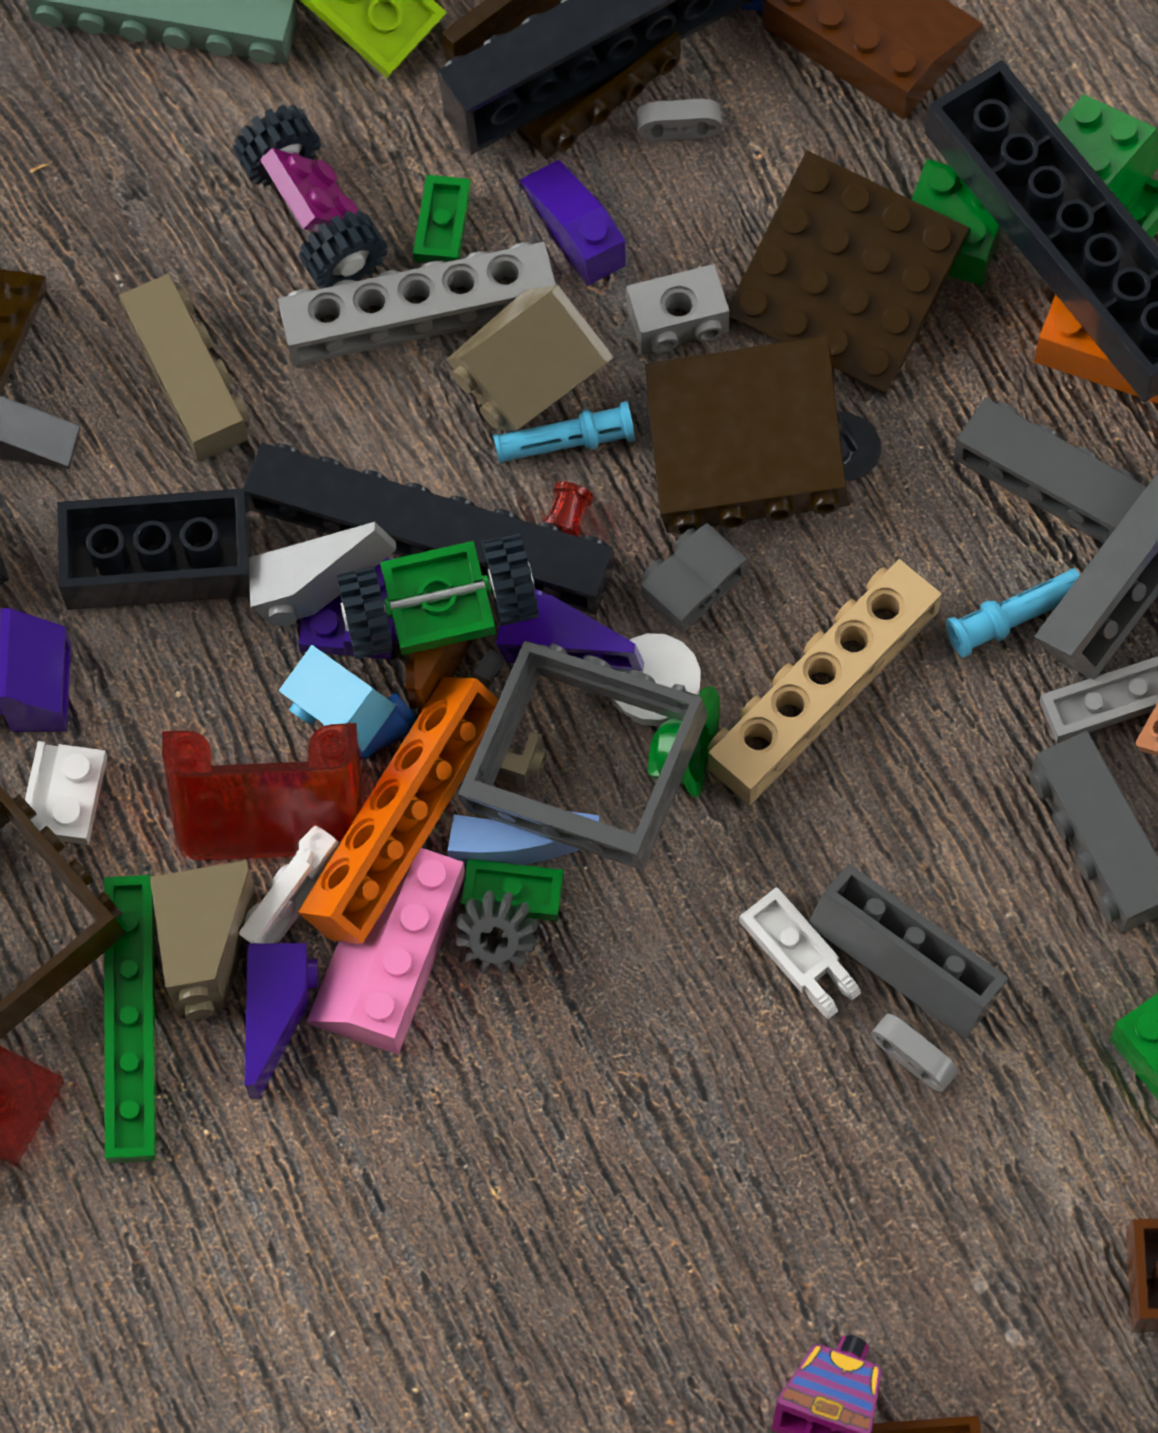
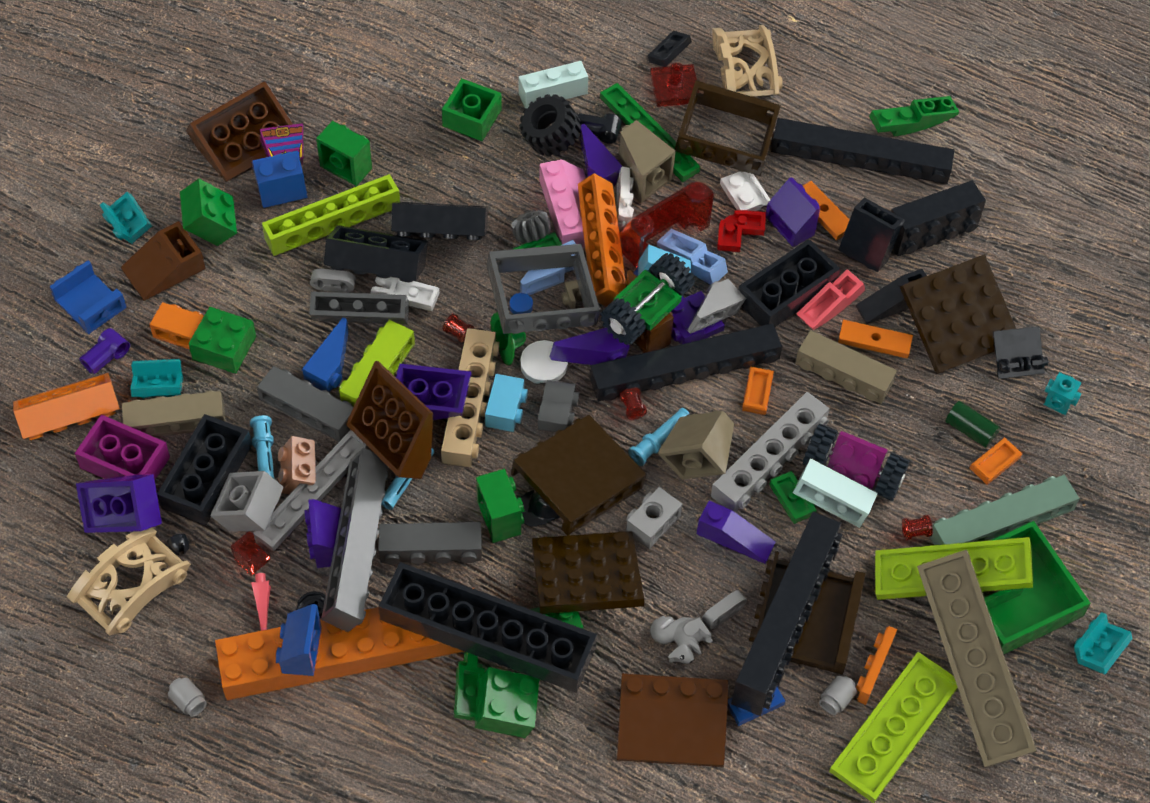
camera: 140 degrees right, 10 degrees down
(70, 170) = (972, 424): none -> dark green brick
(81, 370) = (875, 339): none -> orange tile
(89, 102) = (995, 461): none -> orange tile
(95, 482) = (831, 300): none -> coral slope
(133, 731) = (737, 224): none -> red plate
(205, 1077) = (604, 127): none -> black piece
(226, 1229) = (564, 81): none -> light aqua brick
(257, 705) = (704, 264): none -> light blue slope
(300, 69) = (917, 527): none -> clear red bush
(347, 1109) = (540, 116): none -> black tyre
(348, 422) = (758, 390): none -> orange tile
(380, 174) = (835, 493): none -> light aqua brick
(423, 1260) = (471, 109): none -> green brick
(616, 807) = (521, 303): none -> blue tile
(653, 1033) = (439, 219): none -> black brick
(731, 1299) = (344, 153): none -> green brick
(760, 837) = (456, 327): none -> clear red bush
(761, 120) = (685, 632): none -> light grey animal
(771, 633) = (505, 402): none -> medium azure brick
(812, 1034) = (375, 253): none -> black brick
(837, 1181) = (323, 216): none -> lime brick
(884, 1330) = (279, 179): none -> blue slope
(894, 703) = (437, 388): none -> dark purple slope
(908, 447) = (499, 505): none -> green brick
(946, 827) = (389, 348): none -> lime brick
(1011, 647) = (393, 423): none -> reddish brown slope
(1023, 887) = (327, 363): none -> blue slope
(1069, 1315) = (208, 212): none -> green brick

